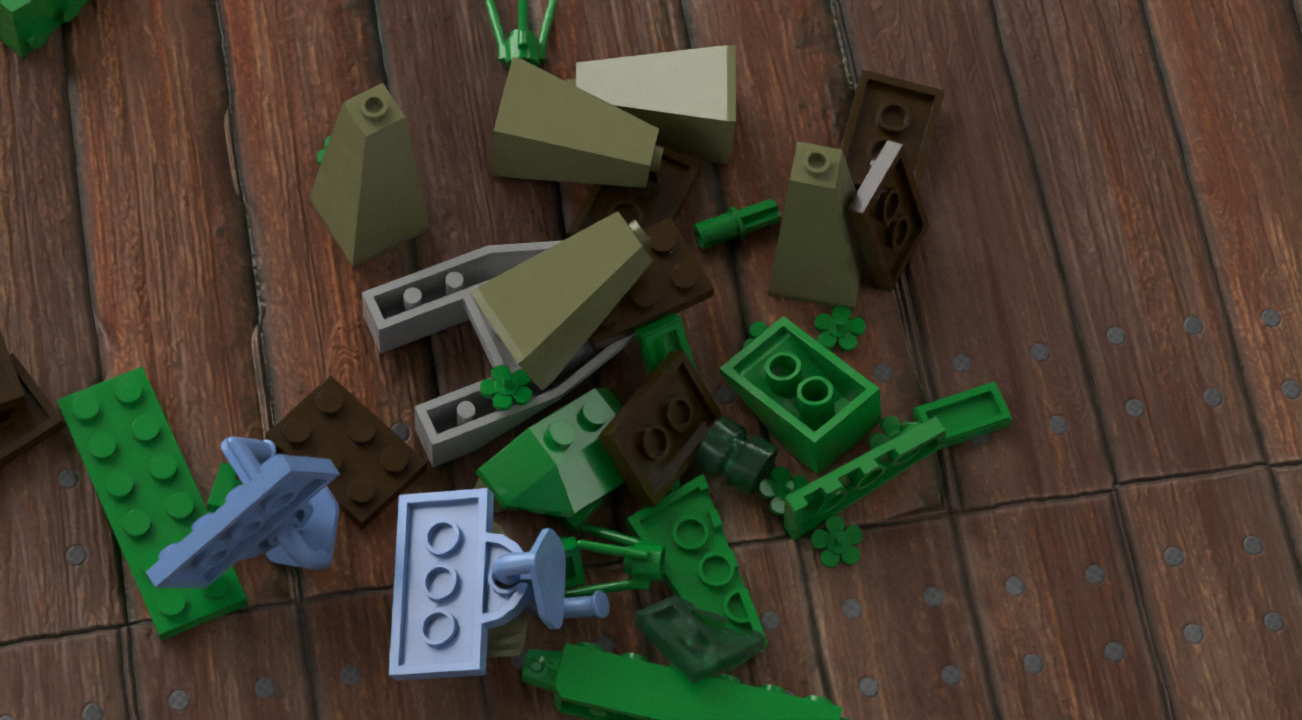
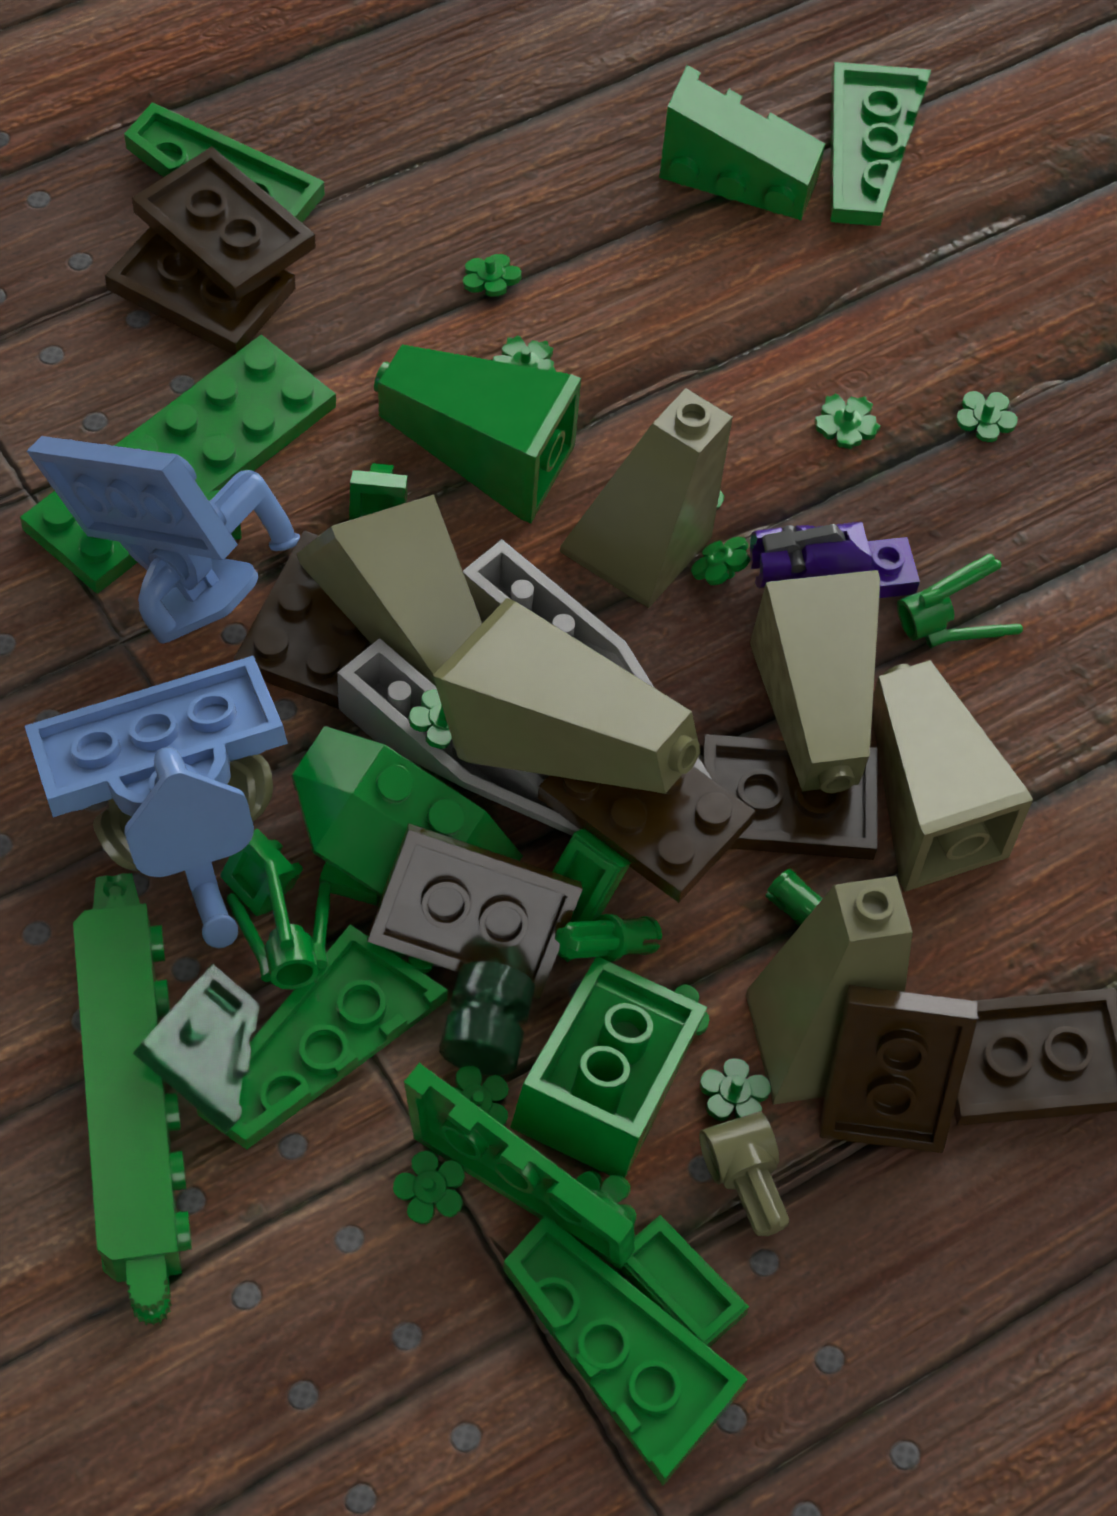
camera: 70 degrees right, 5 degrees down
(68, 214) = (491, 274): none -> green plant
(167, 224) = (534, 355): none -> green plant
(231, 266) = (485, 420): none -> green slope
(261, 369) = (376, 490): none -> green tile
(324, 29) = (847, 421): none -> green plant
(376, 373) = (398, 581): none -> olive slope
(423, 154) = (722, 561): none -> green plant
(457, 89) = (832, 550): none -> dark purple plate
(708, 353) = (609, 937): none -> green axle
(892, 341) = (743, 1158): none -> olive axle
(999, 463) = (631, 1353): none -> green wing

